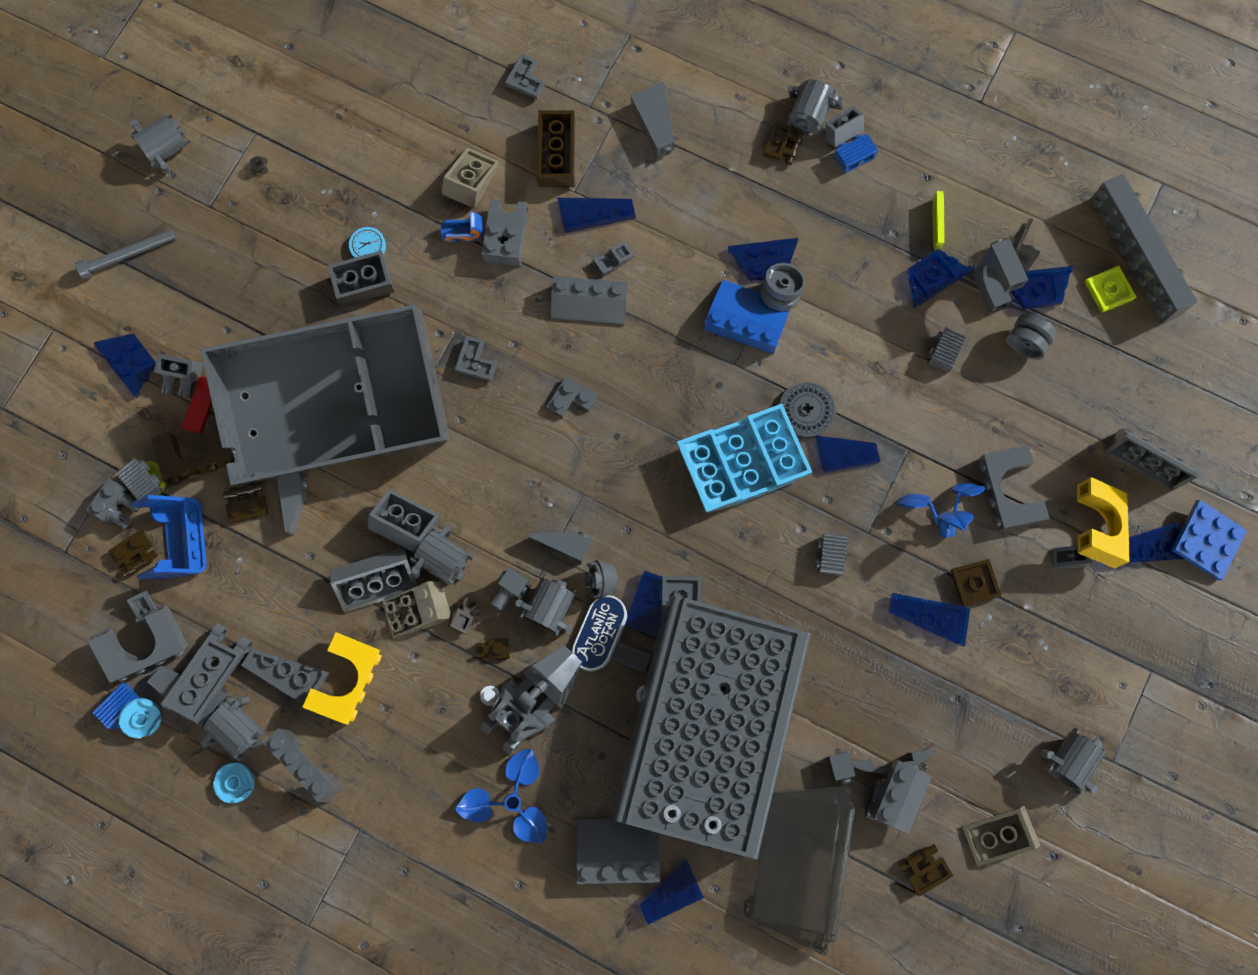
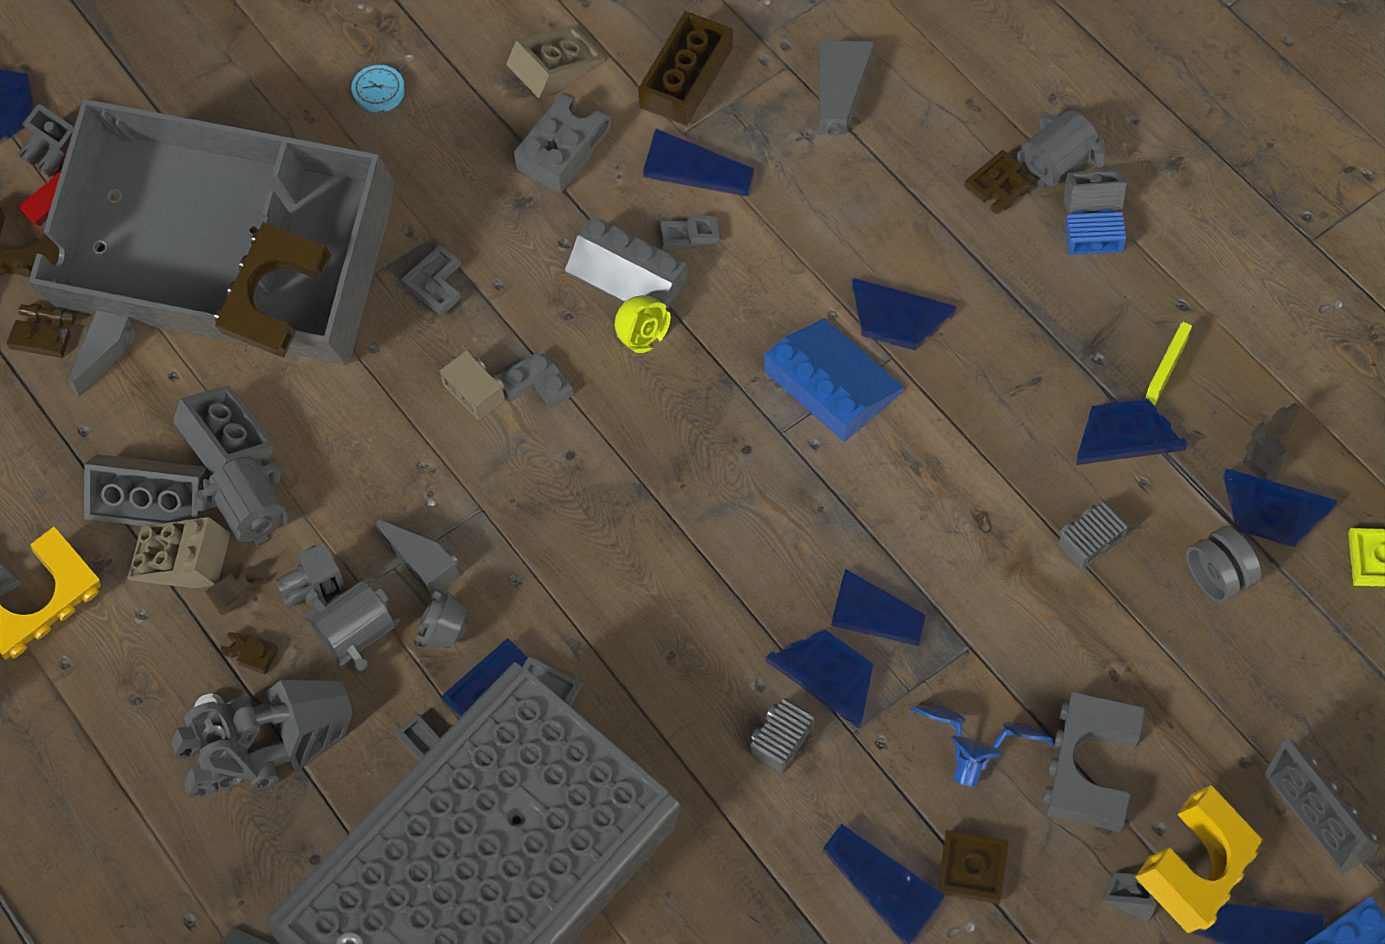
camera: 25 degrees right, 15 degrees down
(361, 278) = (345, 119): dark grey brick -> none
(380, 398) = (270, 250): none -> dark brown arch
(462, 229) = (508, 117): blue animal -> none
(532, 823) = (167, 903): blue plant -> none
(536, 418) = (473, 385): none -> dark tan brick
(600, 633) = (402, 693): tile -> none
(616, 332) = (641, 322): none -> neon yellow cylinder
(744, 459) = (724, 554): medium azure slope -> none
(782, 287) = (897, 355): dark grey wheel -> none
(815, 398) = (863, 548): piece -> none
(839, 503) = (828, 672): none -> clear blue wing
(999, 274) = (1209, 458): dark grey arch -> none

